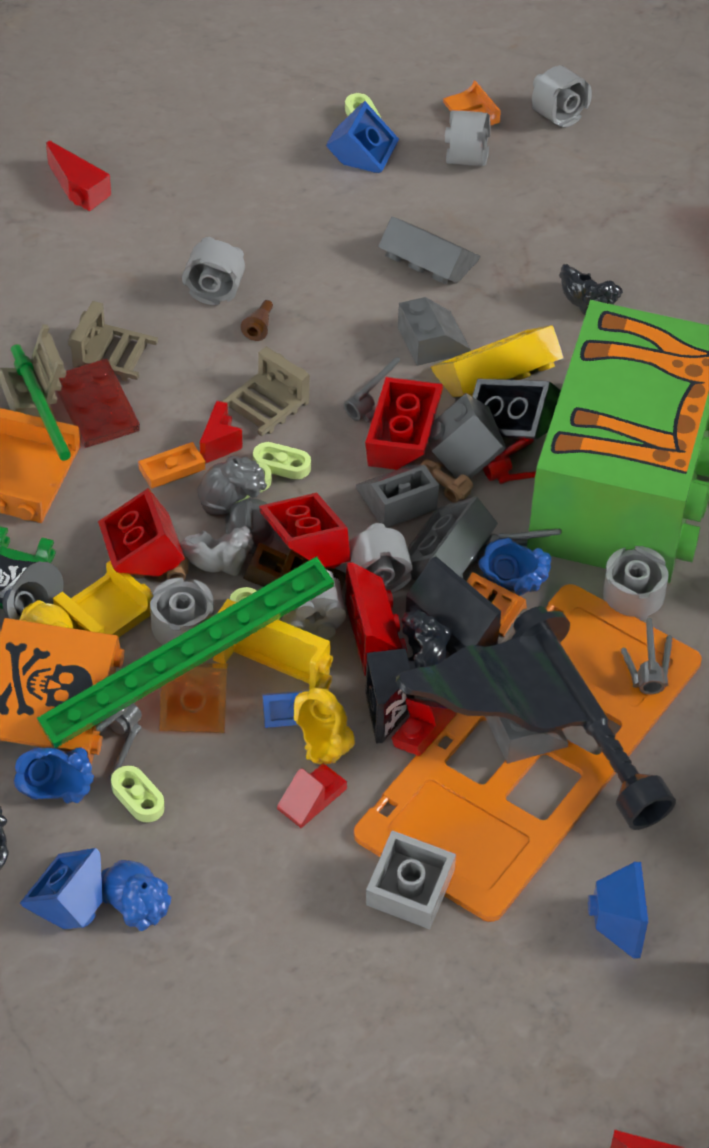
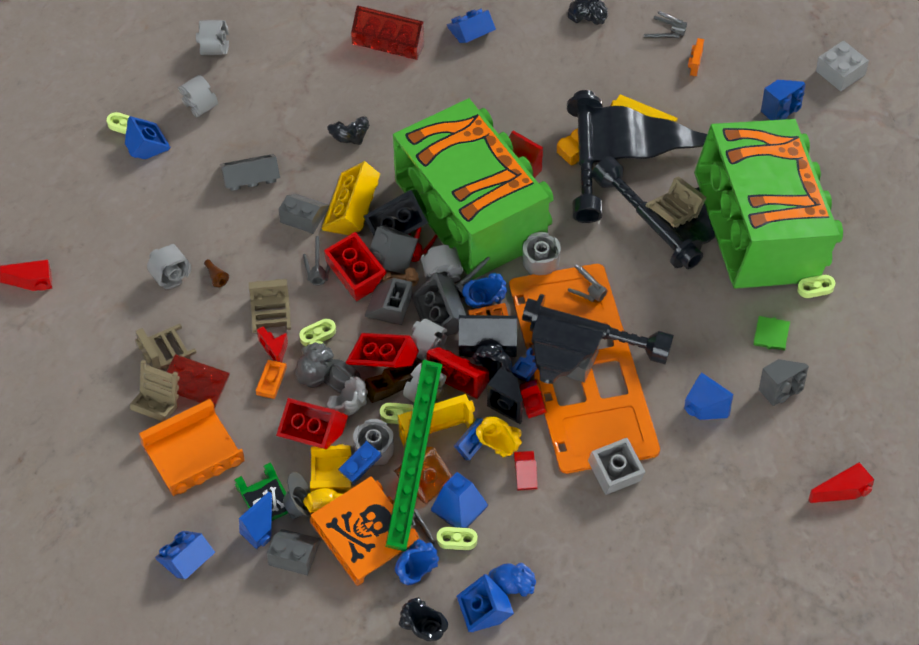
camera: 45 degrees left, 5 degrees up
(25, 369) = (142, 393): green bar -> none
(130, 615) = (360, 462): none -> blue plate
(190, 759) = (459, 502): none -> blue slope
(474, 100) = (166, 75): orange piece -> none
(505, 497) = (442, 261): none -> light grey brick

